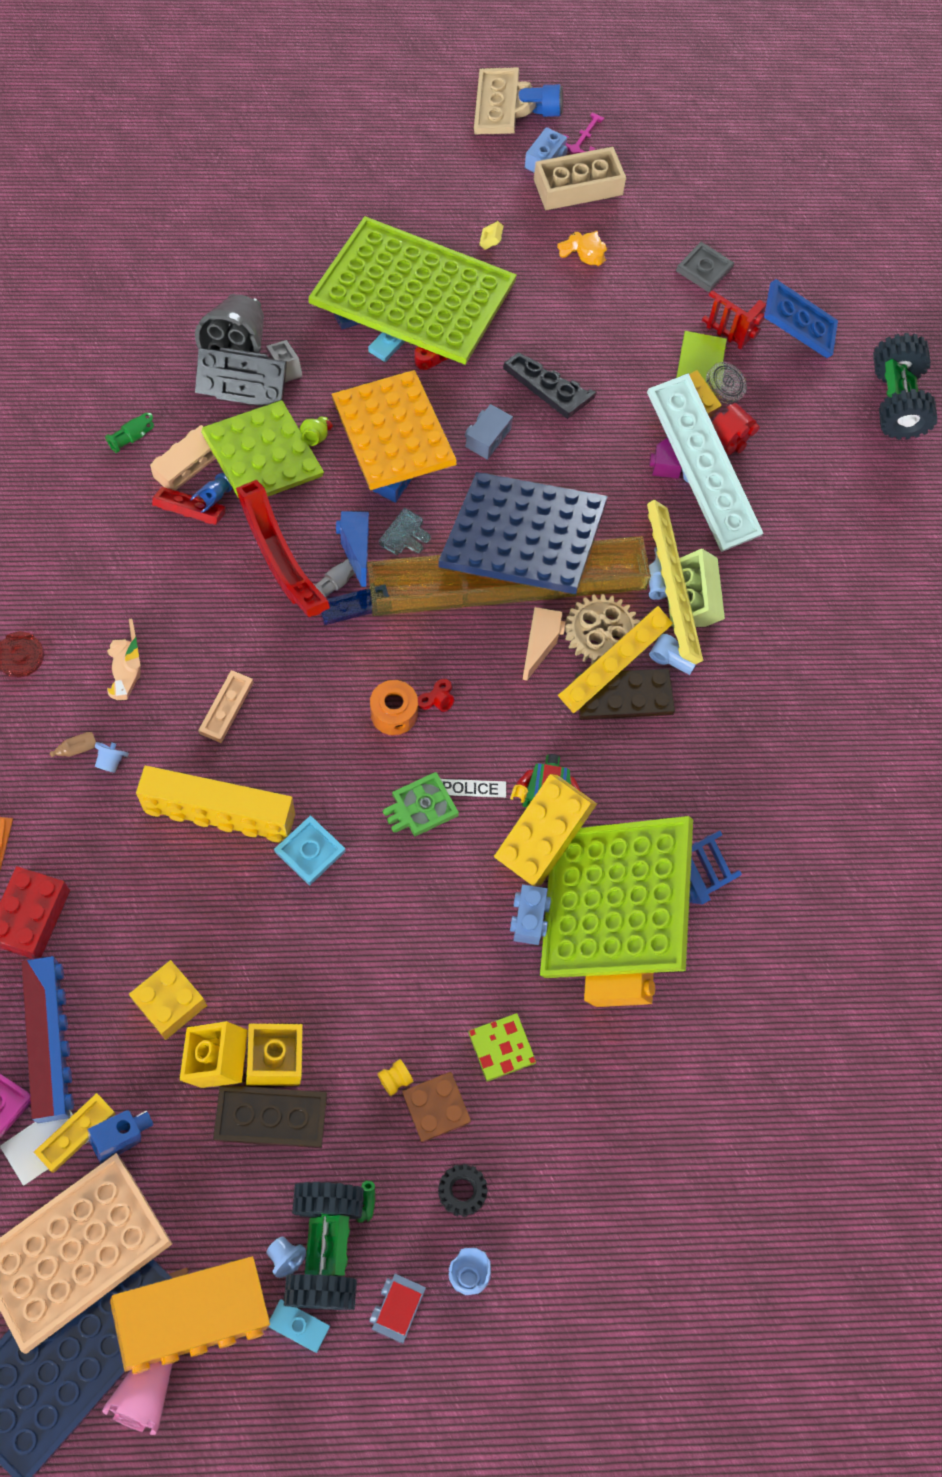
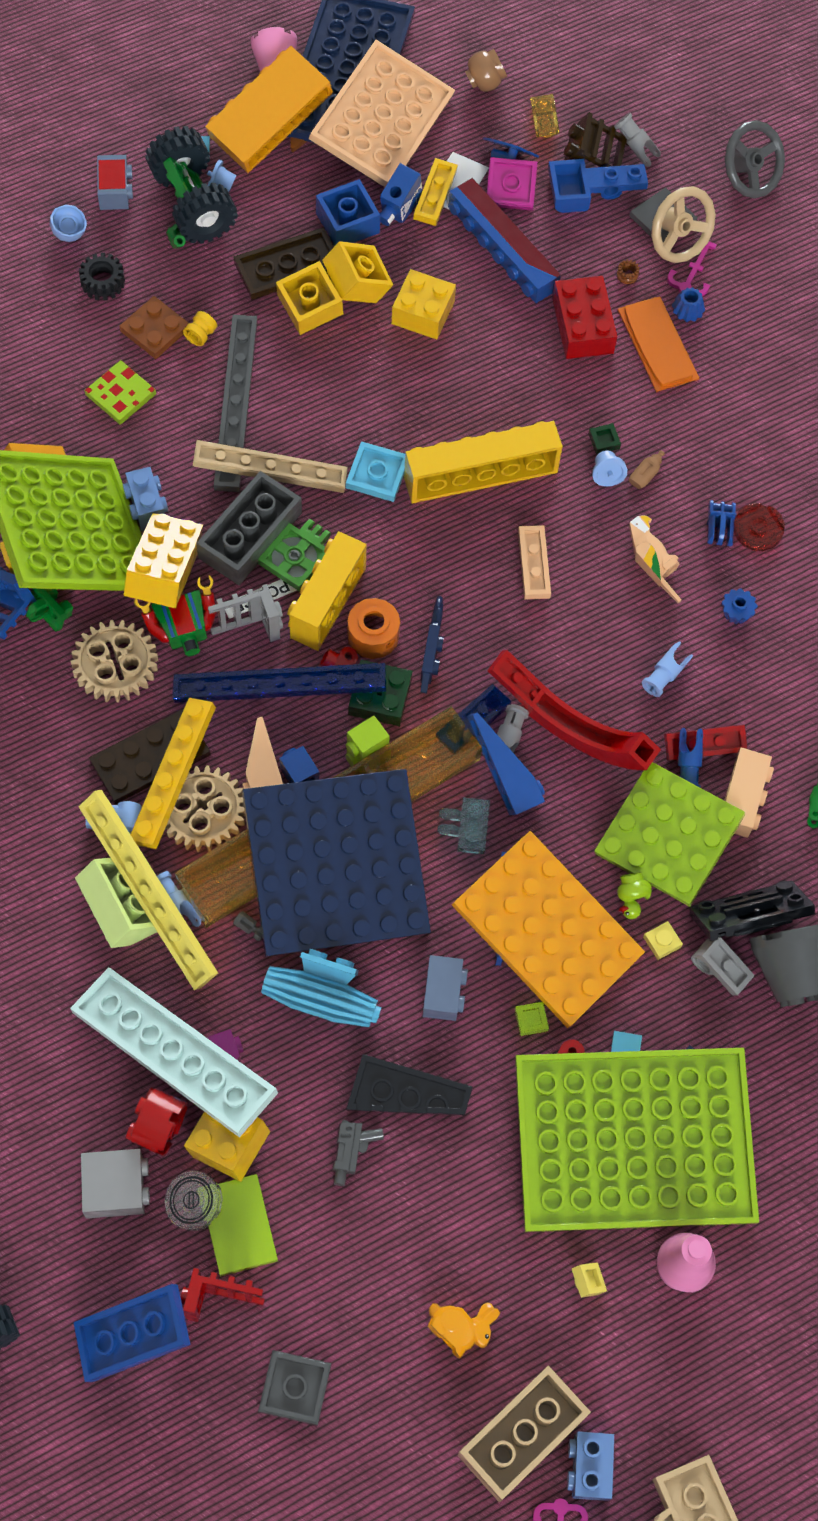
camera: 155 degrees right, 0 degrees up
(50, 664) = (721, 516): none -> blue arm
(87, 590) = (739, 606): none -> blue piece
(92, 788) = (604, 438): none -> dark green plate
(177, 572) = (665, 671): none -> light blue piece
(181, 1139) = (348, 213): none -> blue brick
(313, 398) = (663, 940): none -> light yellow plate
(352, 674) = (433, 645): none -> dark blue plate
(398, 984) = (236, 393): none -> dark grey plate
(404, 895) = (278, 467): none -> tan tile
(416, 657) = (385, 706): none -> dark green piece
(416, 748) = (327, 590): none -> yellow brick
(423, 213) = (686, 1262): none -> bright pink cone
(437, 392) = (531, 1018): none -> clear neon green tile
(452, 840) = (248, 527): none -> dark grey brick
(453, 609) = (365, 740): none -> lime brick
(481, 759) = (259, 607): none -> light grey plate
(496, 690) = (280, 682): none -> clear blue plate
(513, 625) = (298, 766): none -> blue brick
(574, 464) = (322, 990): none -> medium azure plate
(603, 374) = (350, 1142): none -> dark grey piece
(605, 534) = (248, 925): none -> dark grey piece
(643, 782) = (138, 653): none -> tan gear
(777, 414) = (114, 1183): none -> light grey piece

